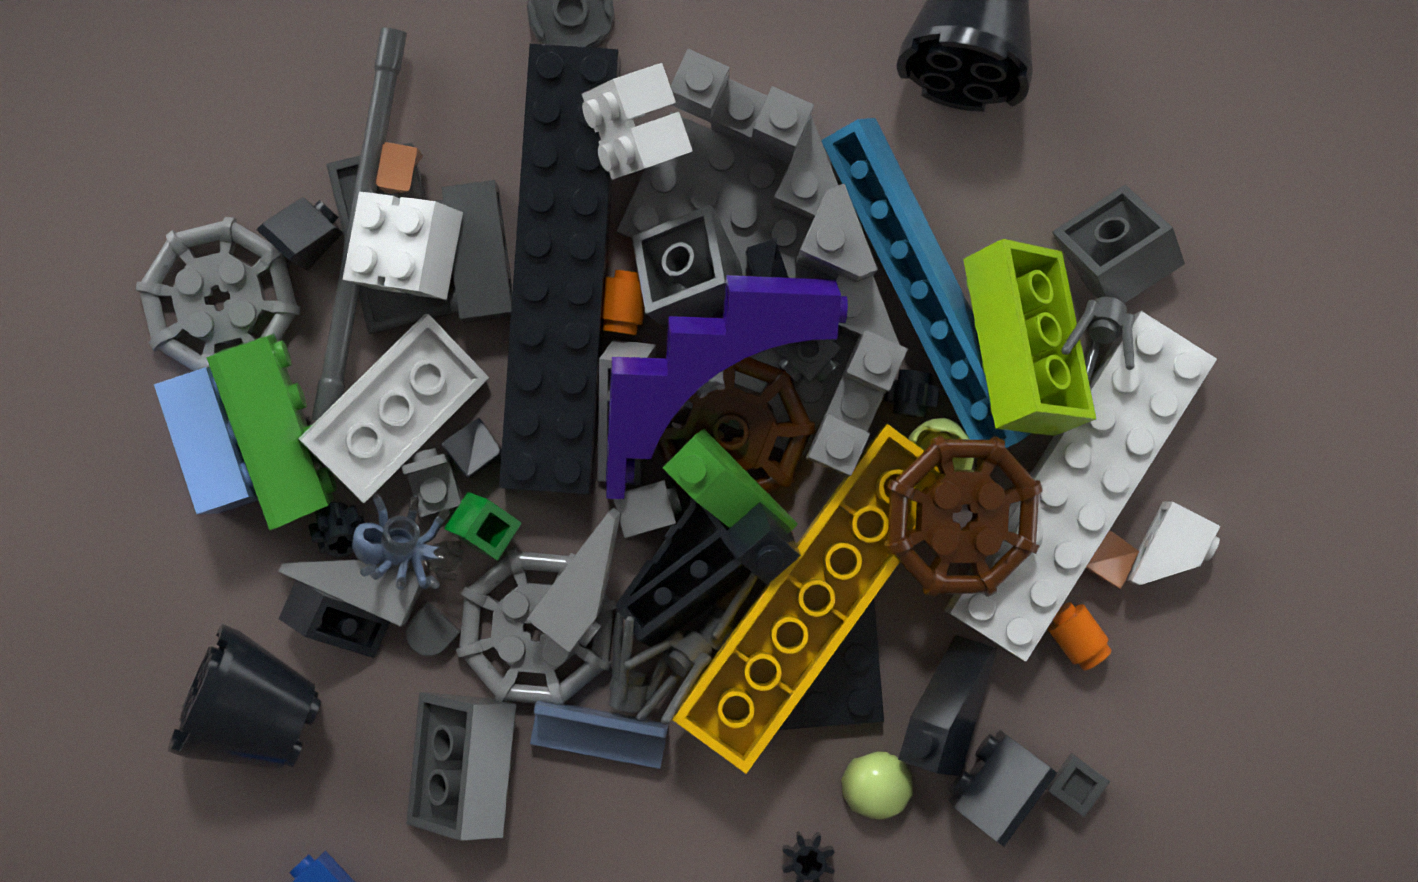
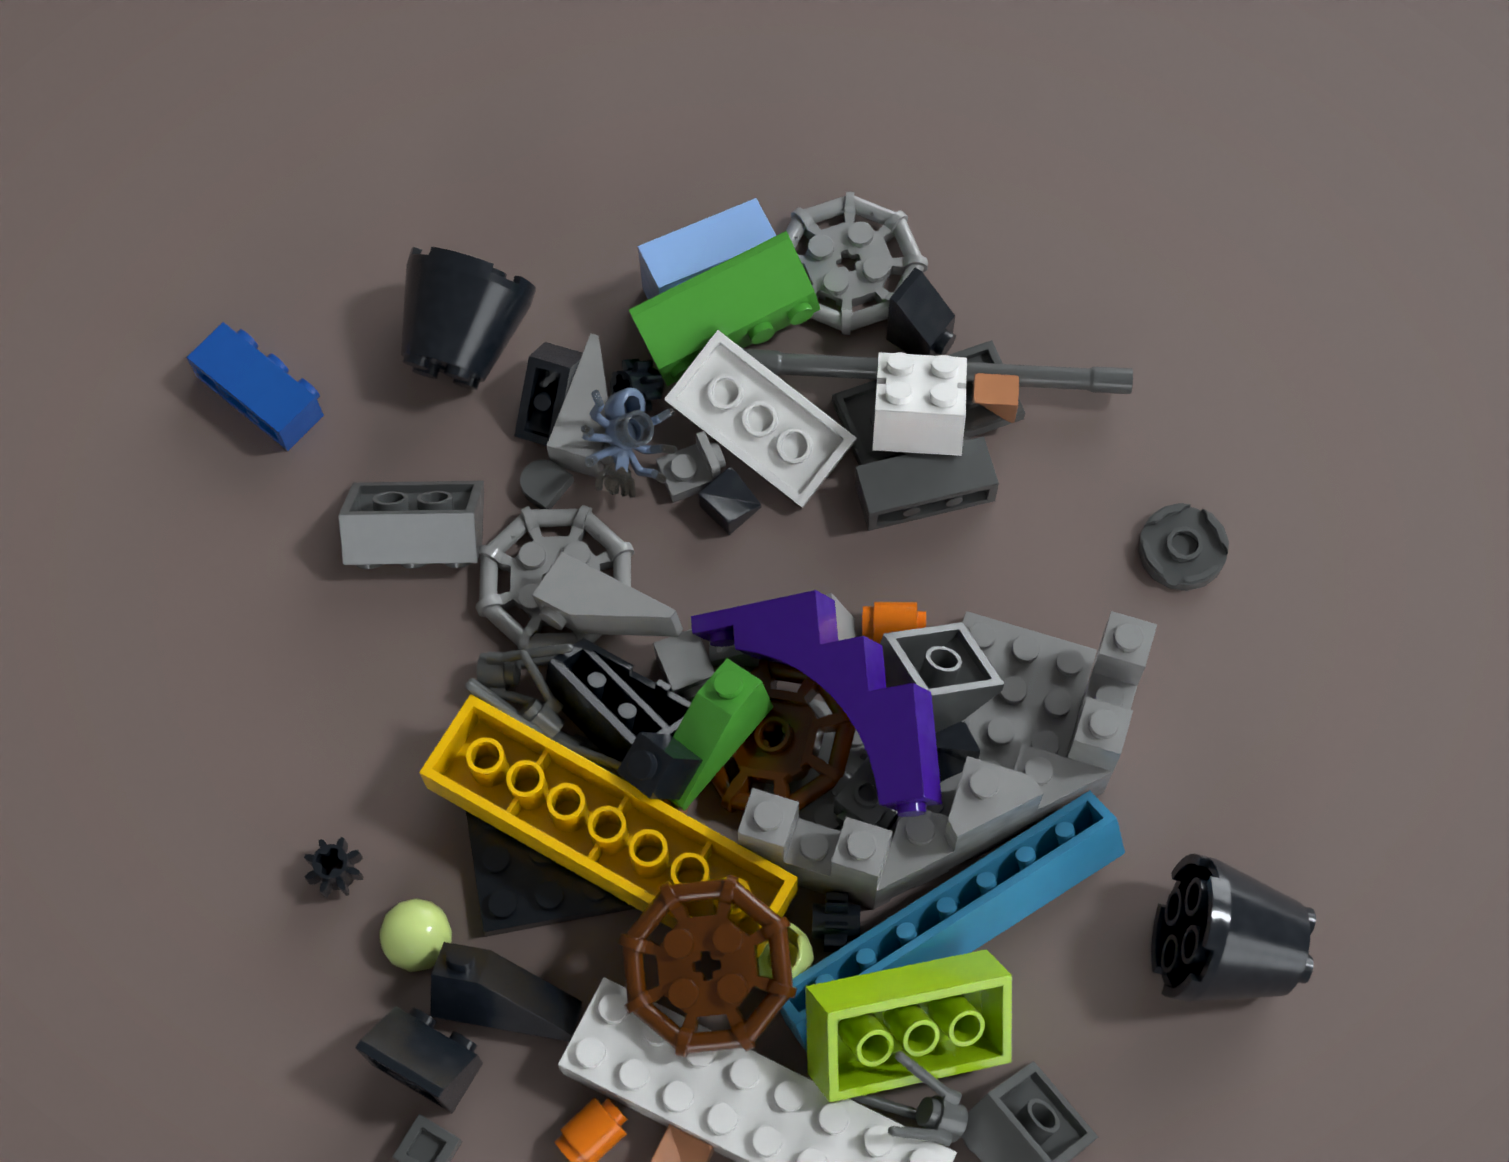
camera: 85 degrees right, 20 degrees down
(482, 525) = (652, 511): green brick -> none
(557, 277) = (927, 556): black brick -> none
(599, 734) = (452, 649): sand blue panel -> none
(611, 112) = (1065, 595): white piece -> none

